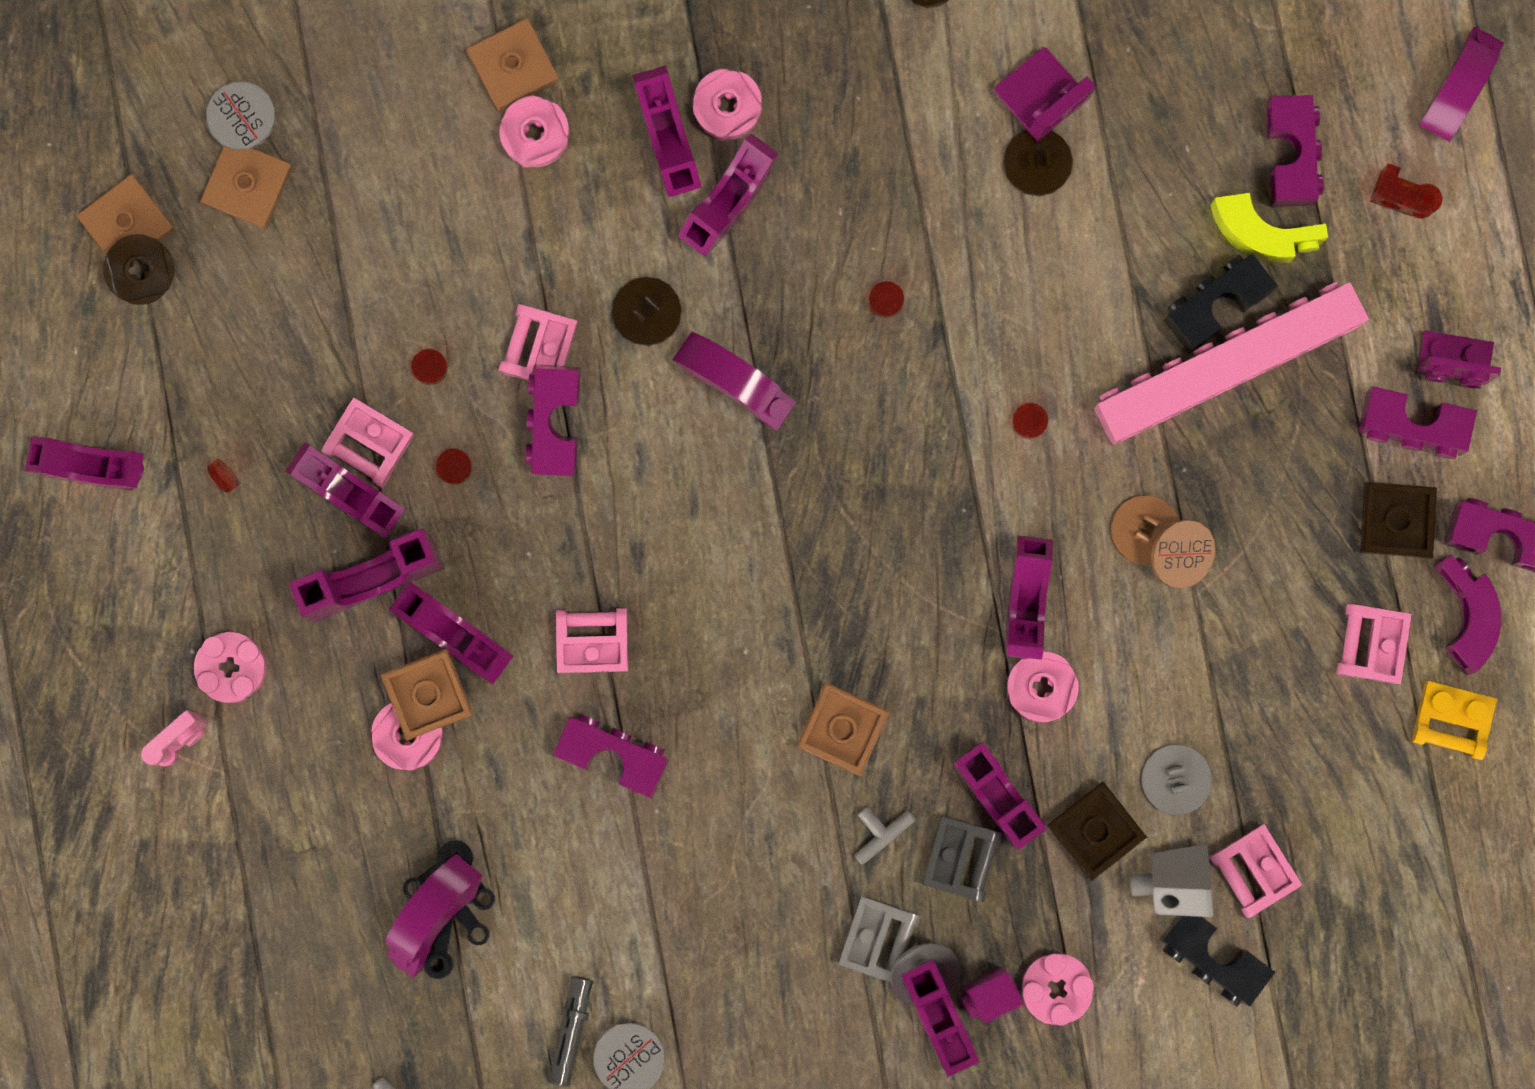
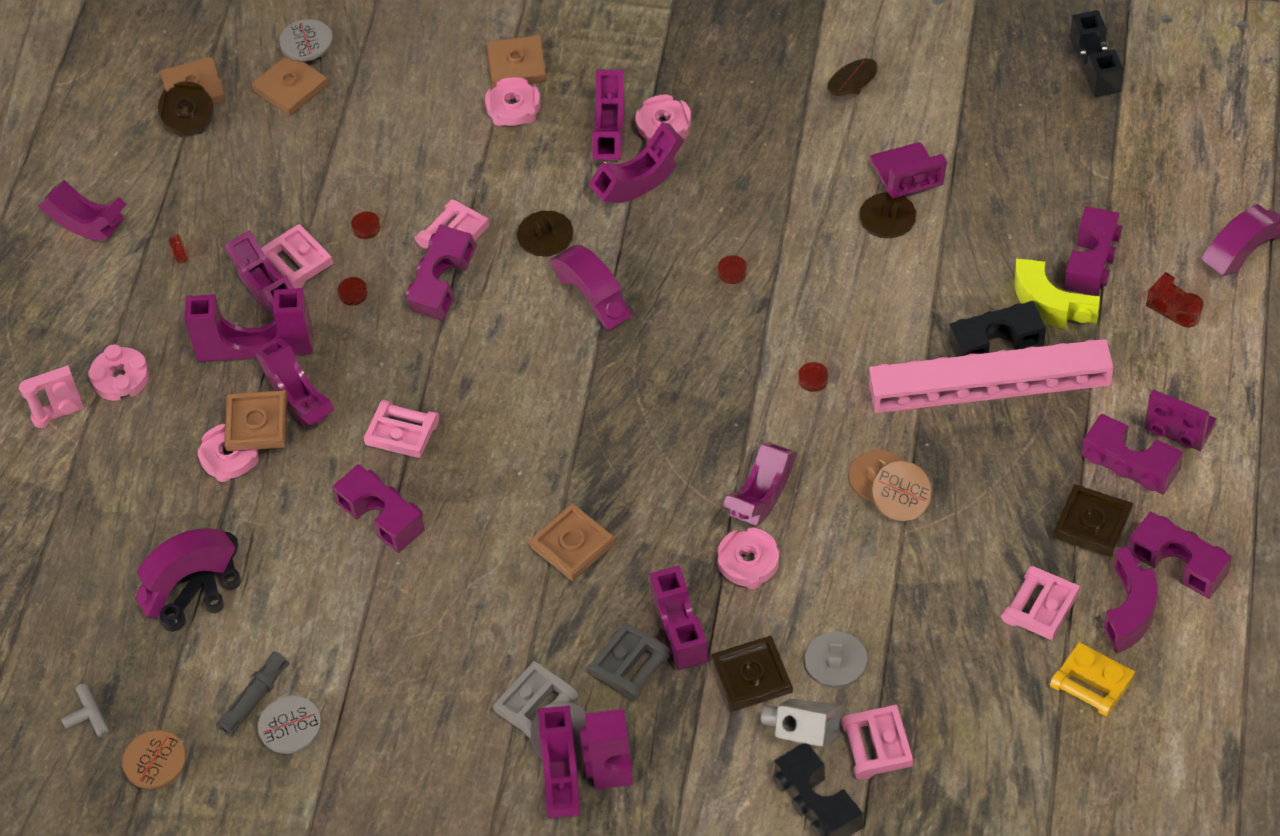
camera: 20 degrees right, 30 degrees down
(882, 834) = (571, 627): light grey piece -> none
(1060, 1009) = (668, 800): bright pink plate -> none

